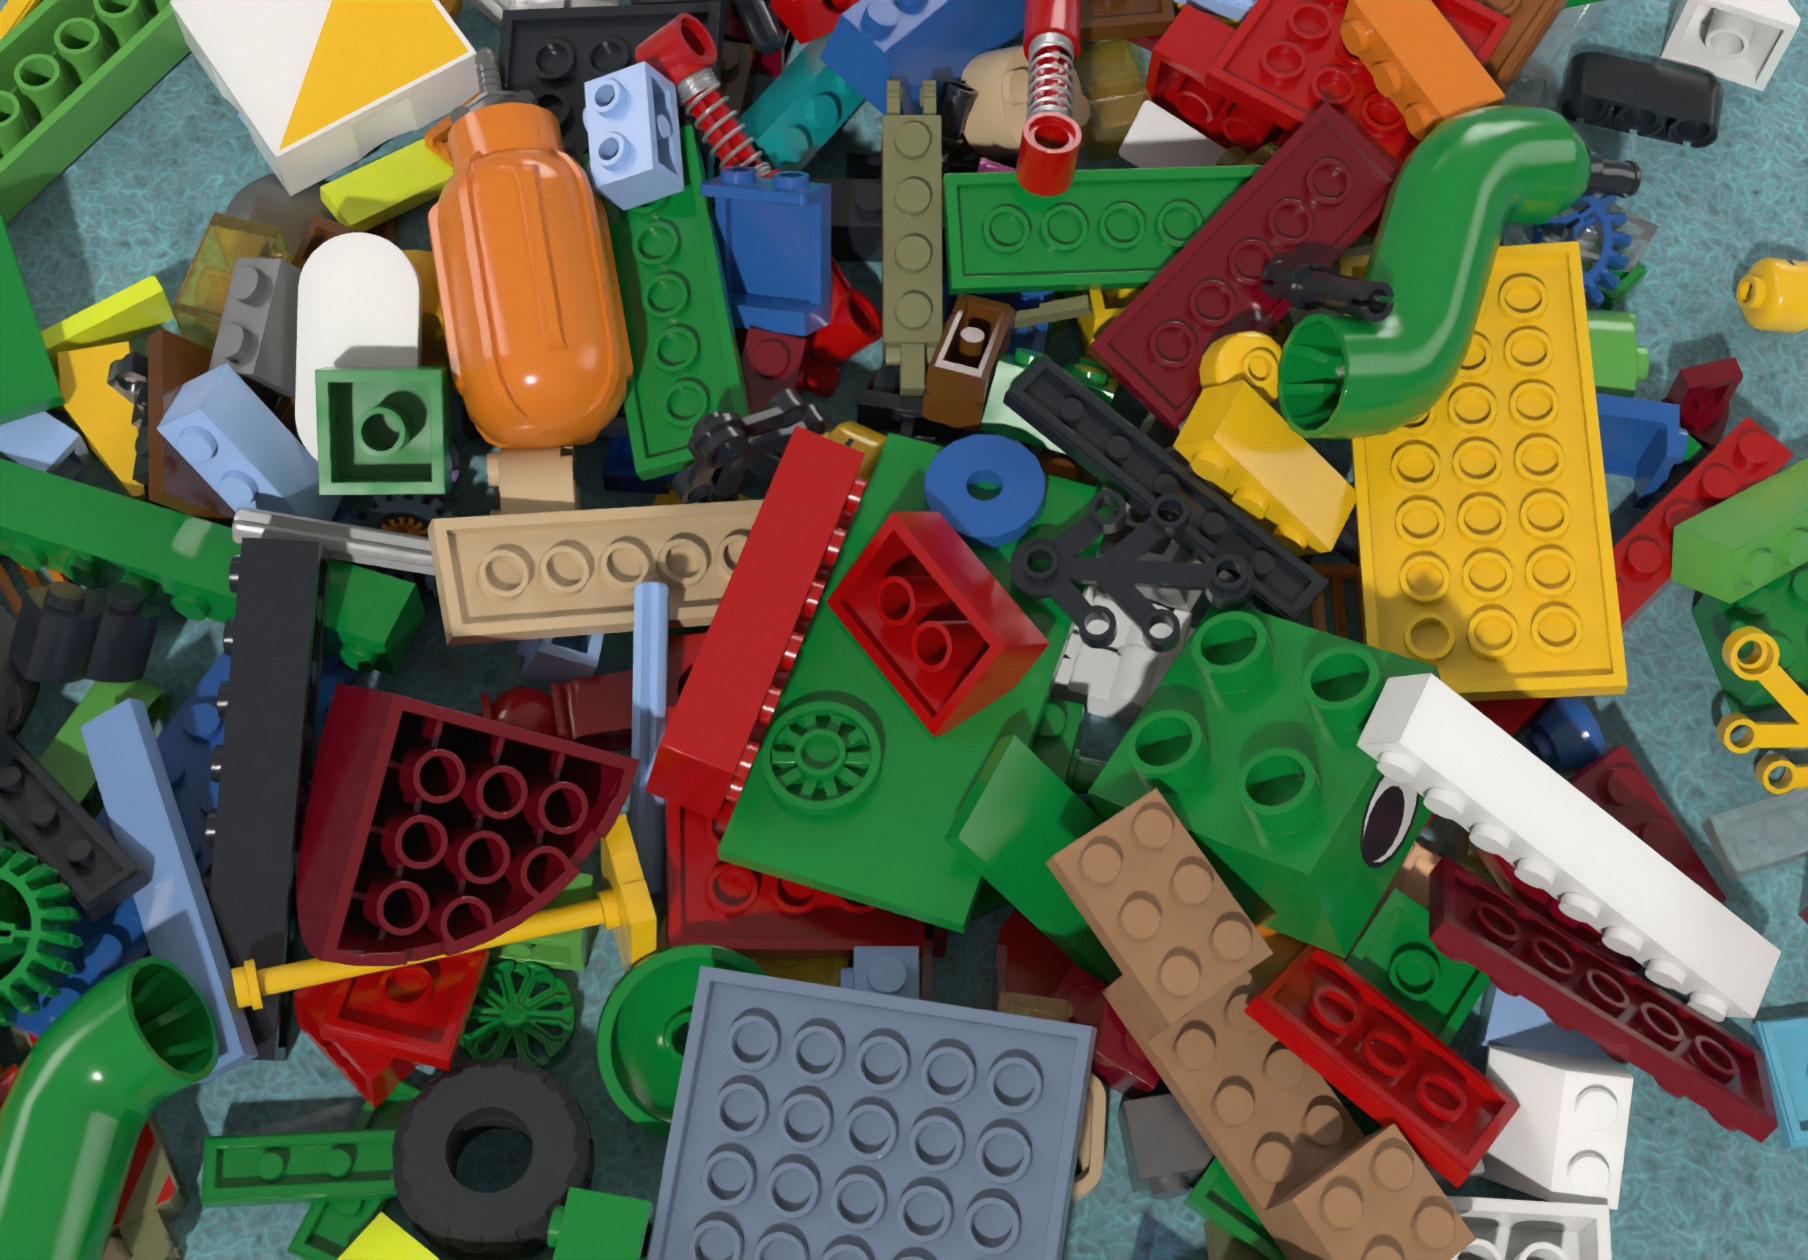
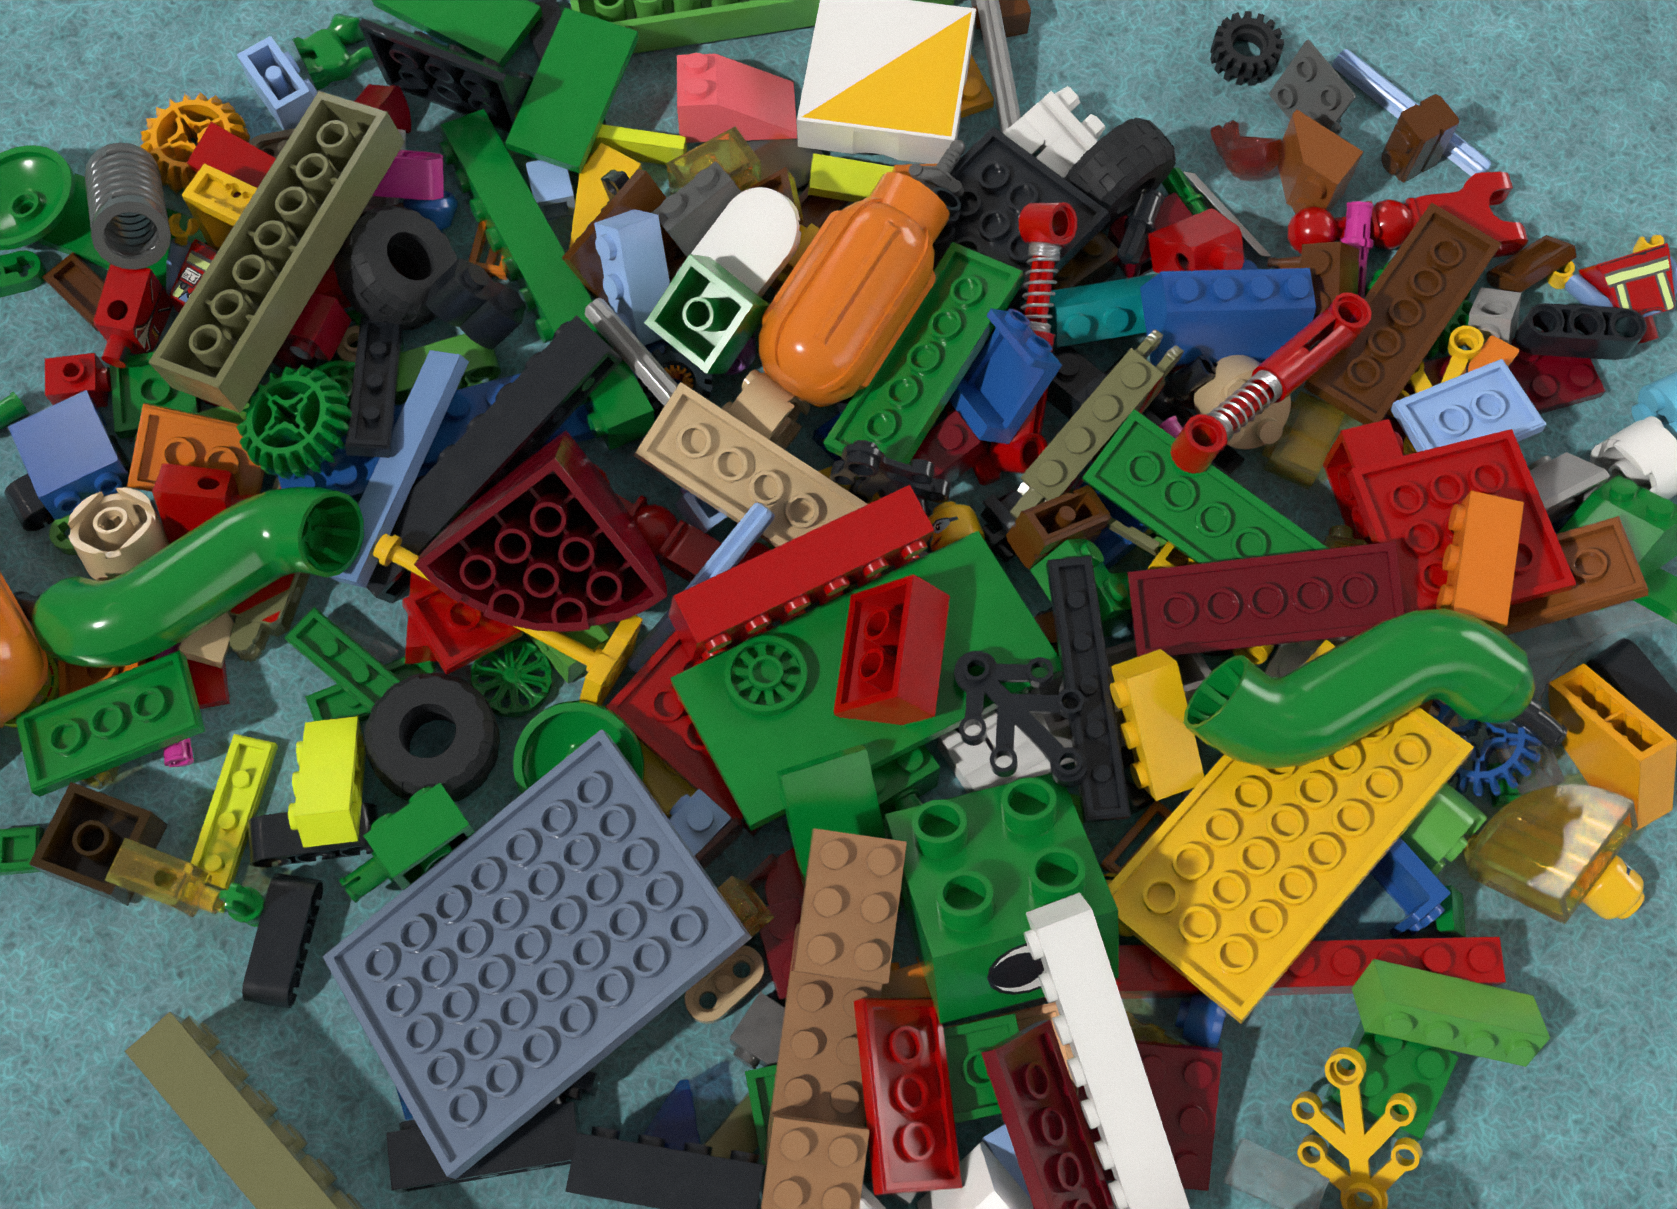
camera: 45 degrees right, 5 degrees up
(157, 203) = (724, 94): none -> coral slope
(633, 136) = (979, 253): light blue brick -> none
(993, 461) = (992, 582): blue tile -> none
(1165, 141) = (1311, 498): white sticker -> none
(1243, 357) = (1197, 655): yellow head -> none
(1314, 287) = (1275, 645): black pin -> none
(1690, 149) = (1615, 742): none -> light orange brick
(1704, 399) = (1490, 906): dark red tile -> none
(1707, 291) = (1551, 846): none -> clear yellow brick

